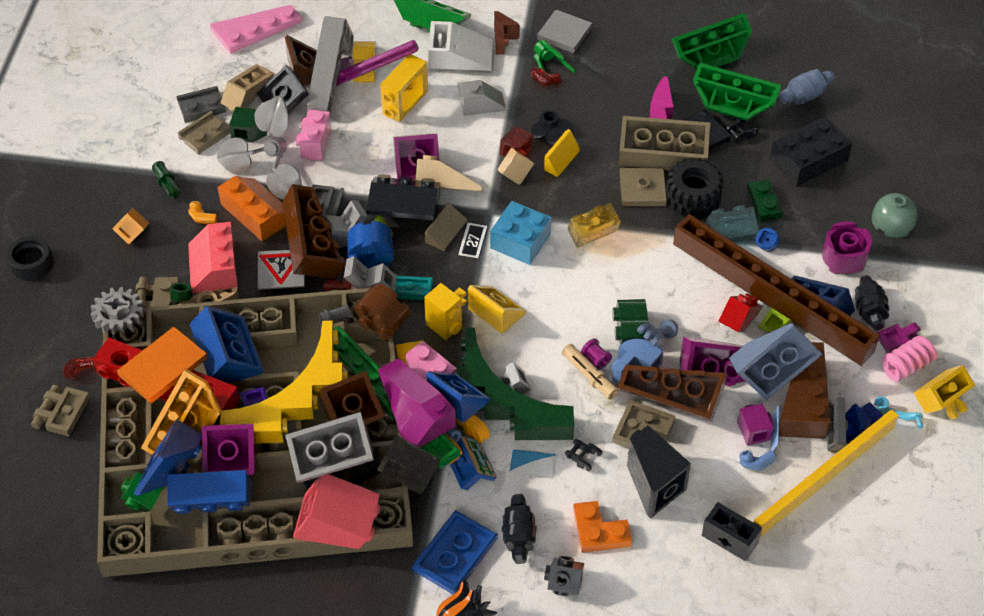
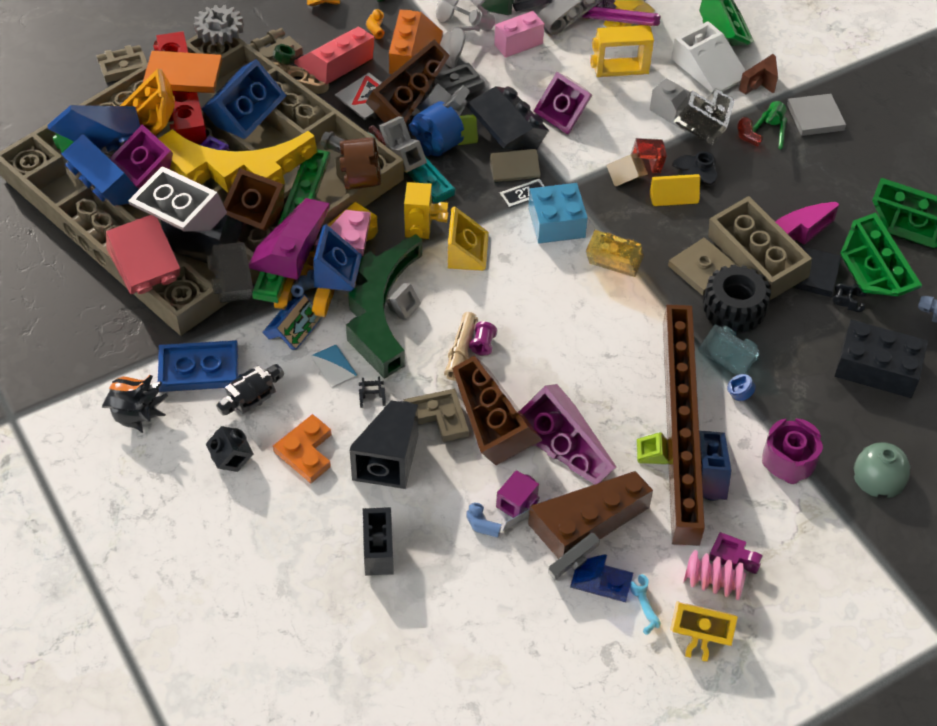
camera: 50 degrees right, 0 degrees up
(447, 176) = (563, 130): tan slope -> none
(516, 86) = (704, 116): none -> clear smoke brick
(629, 317) = (540, 343): dark green brick -> none
(638, 353) = (508, 366): medium blue brick -> none
(666, 330) = (532, 361): sand blue hinge -> none
(740, 312) = (632, 412): red slope -> none
(764, 200) = (788, 360): dark green plate -> none
(774, 359) = (581, 458): sand blue slope -> none
(826, 472) = (516, 581): yellow tile -> none
(872, 302) = (749, 507): black piece -> none

